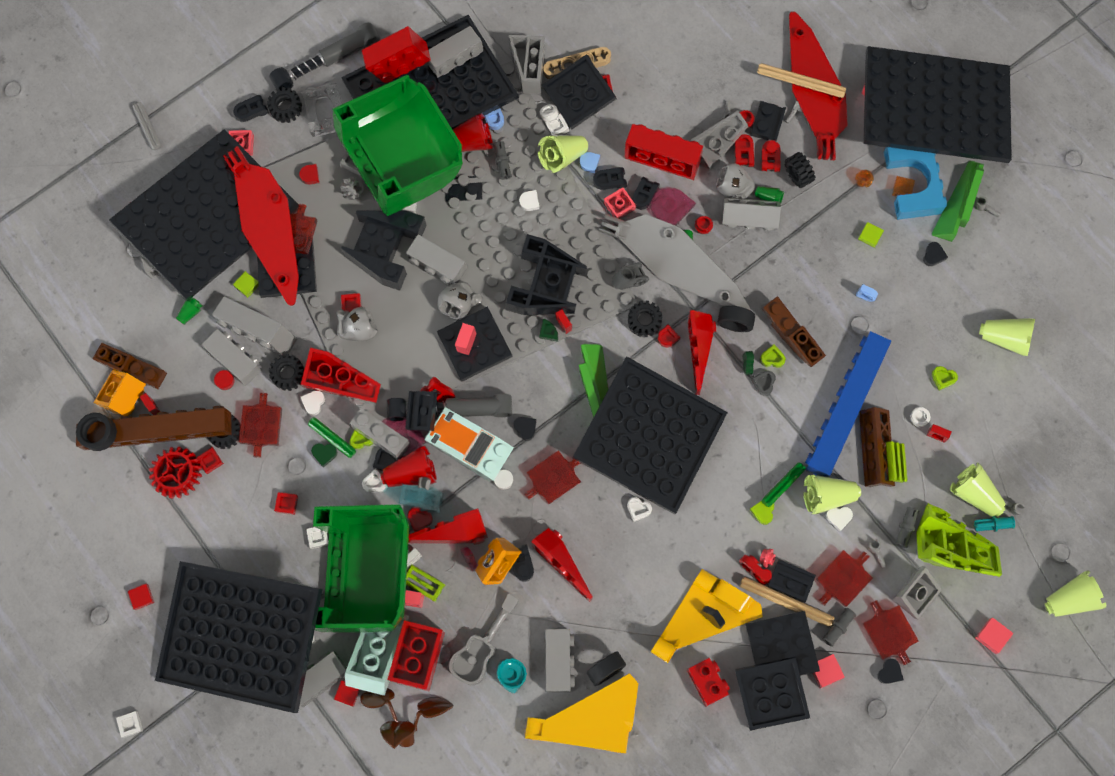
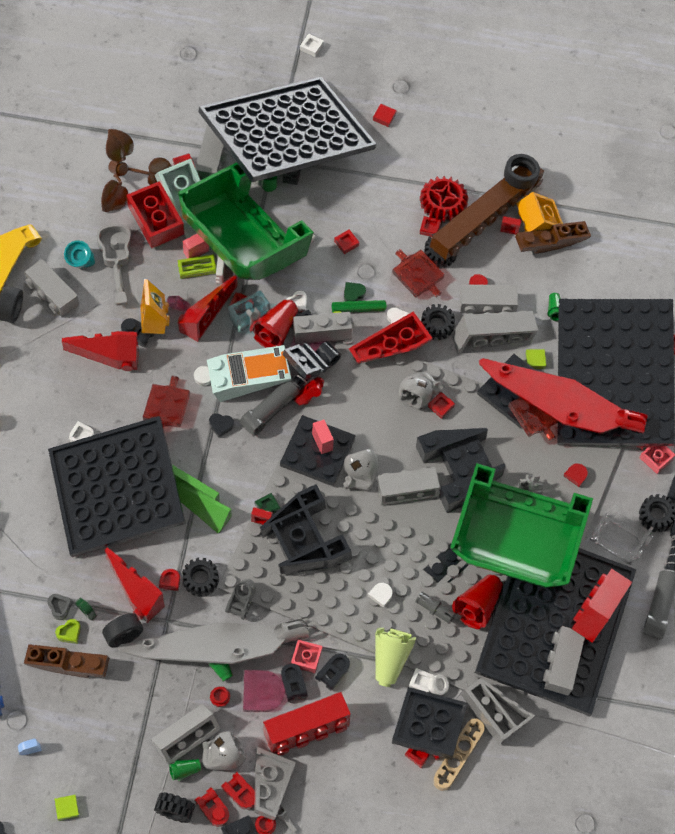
camera: 130 degrees right, 10 degrees down
(495, 119) = (476, 639): light blue tile -> none
(589, 162) = (364, 673): light blue tile -> none

